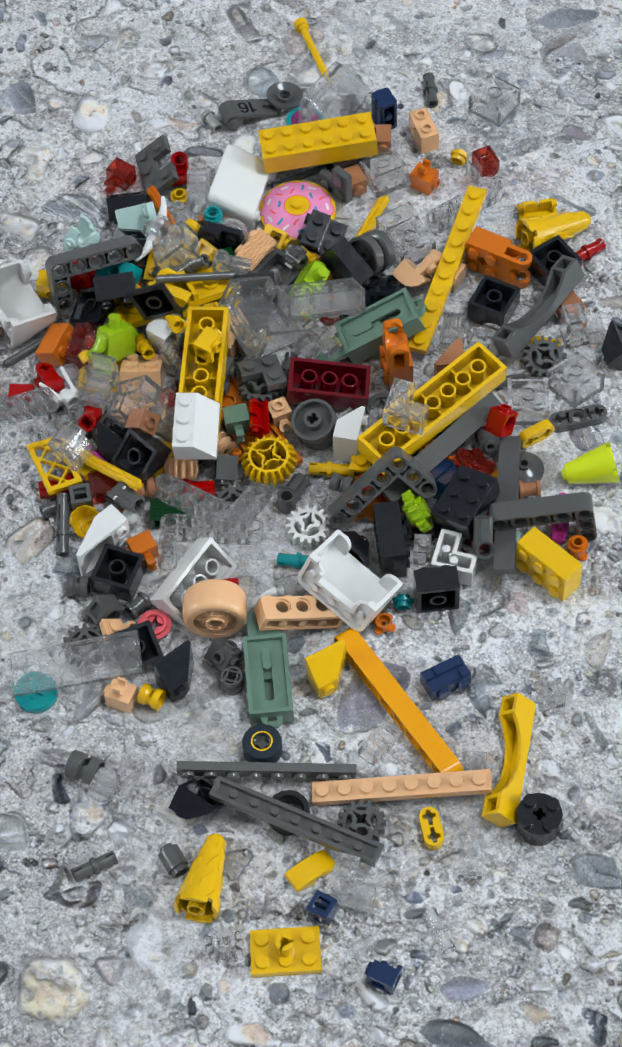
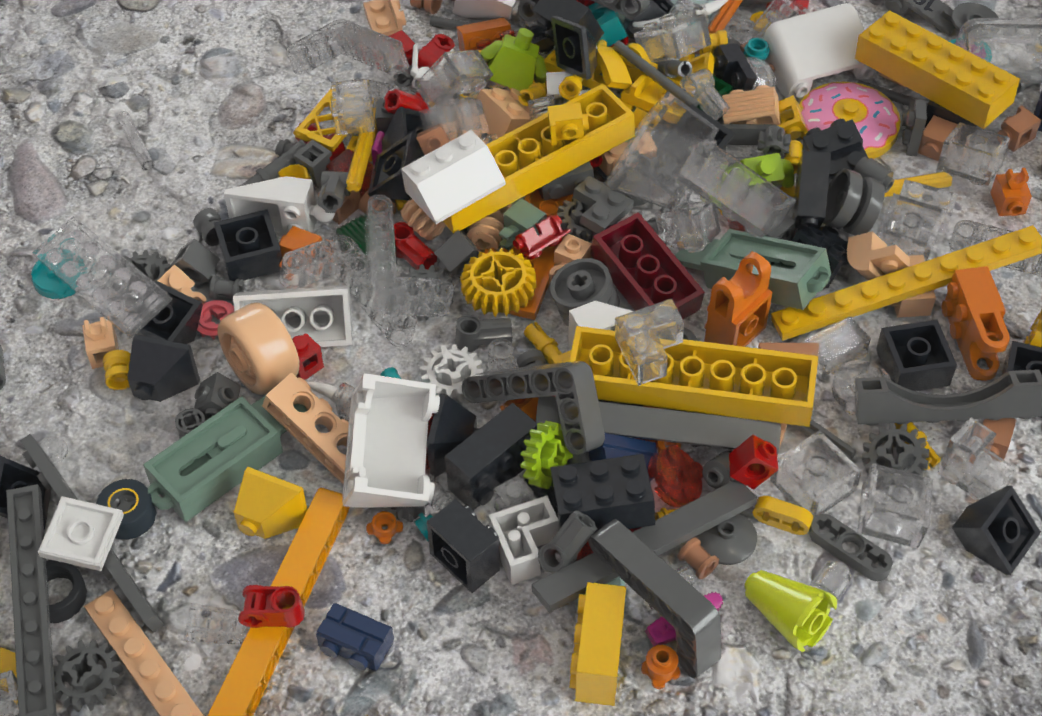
camera: 50 degrees right, 5 degrees down
(275, 769) = (81, 533): none -> white plate
(356, 228) = (875, 170): none -> dark grey brick
(399, 704) = (265, 604): none -> red piece

